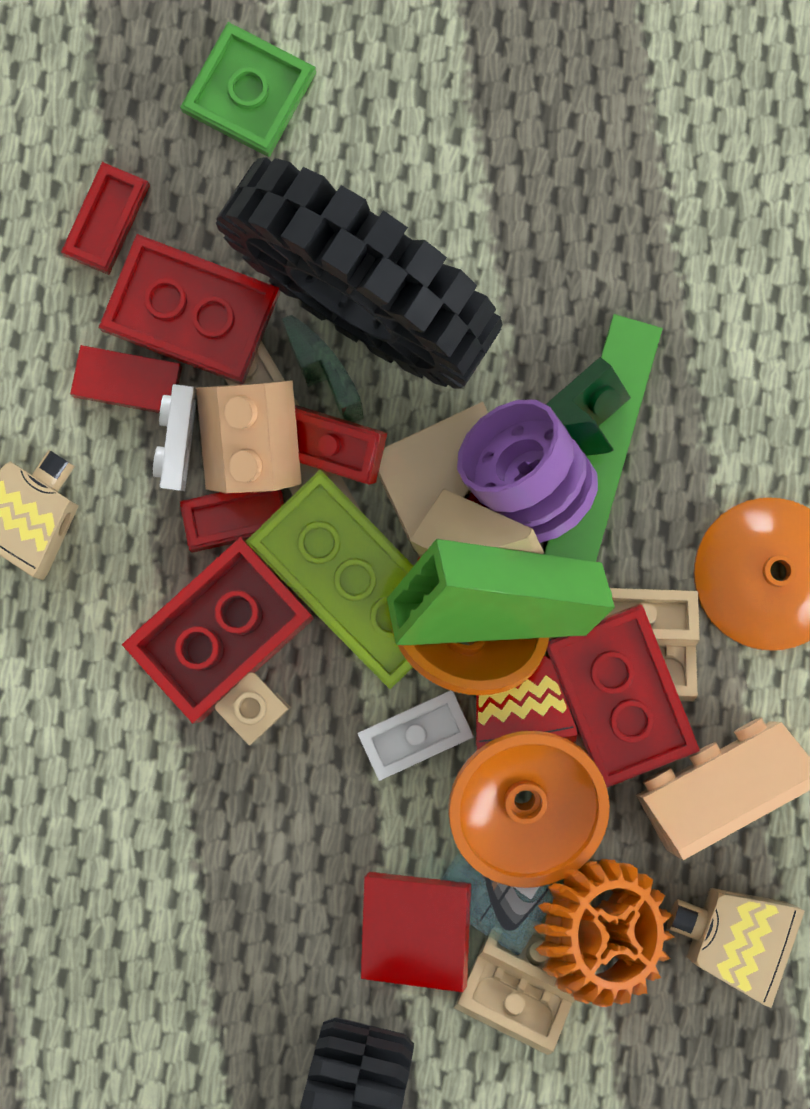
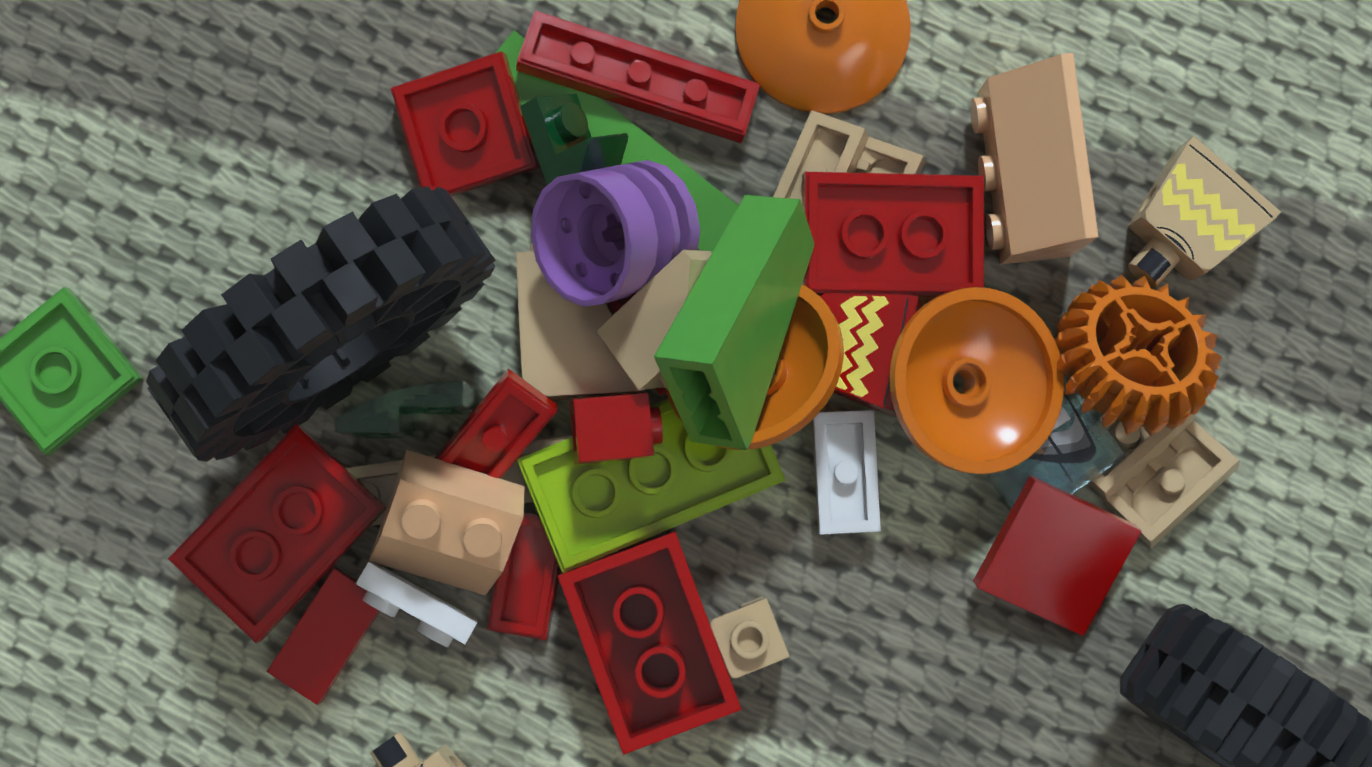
camera: 70 degrees left, 0 degrees up
(105, 218) = (134, 587): red tile -> none
(374, 535) = (614, 428): none -> red brick
(568, 321) = (465, 126): none -> red tile
(666, 441) = (637, 76): none -> red tile

